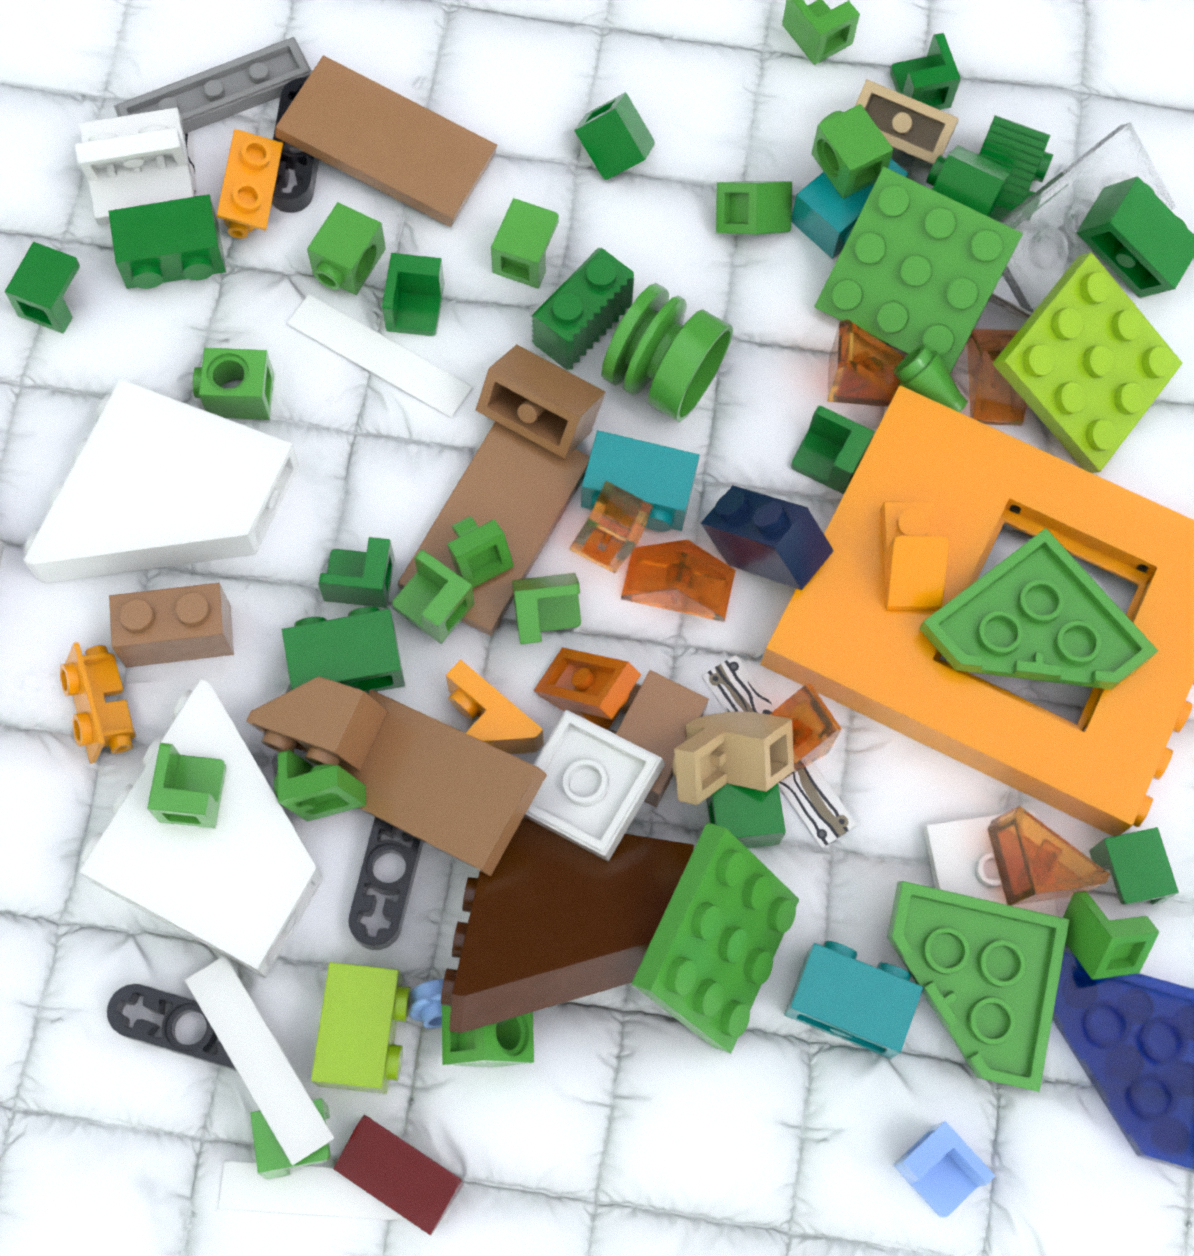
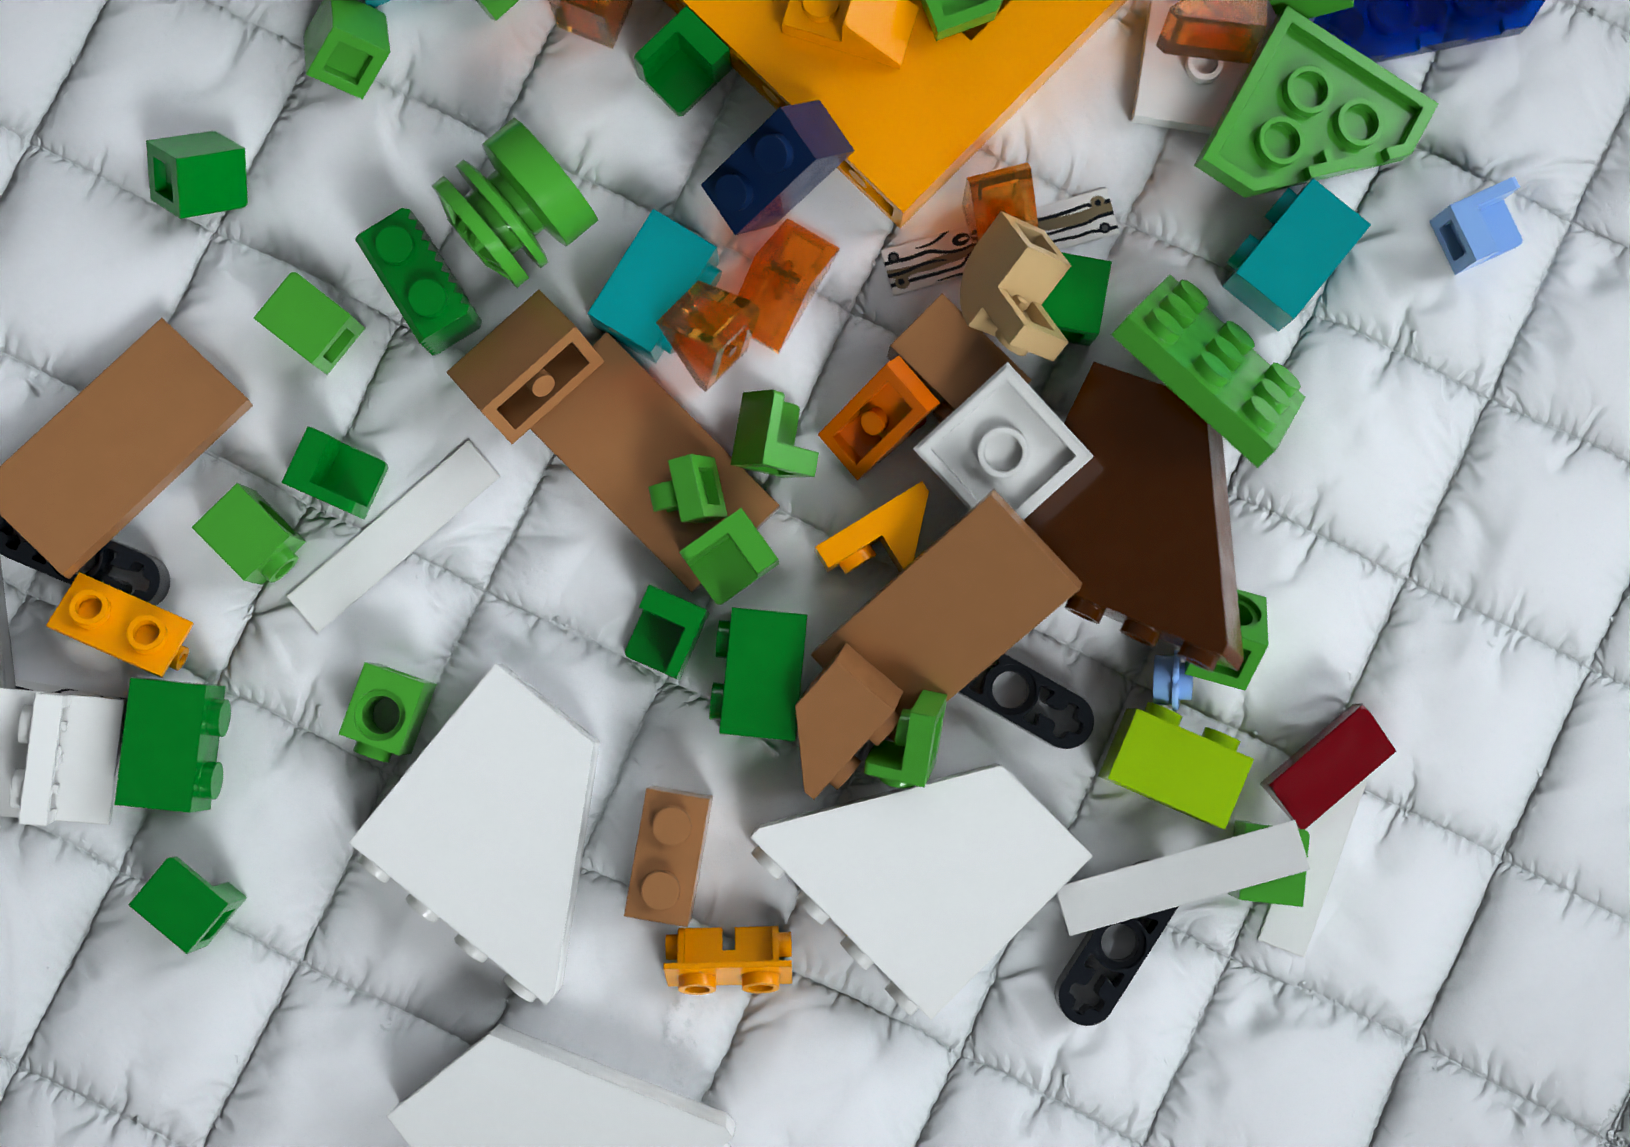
camera: 75 degrees left, 15 degrees up
(186, 788) = (881, 880): bright green panel -> none

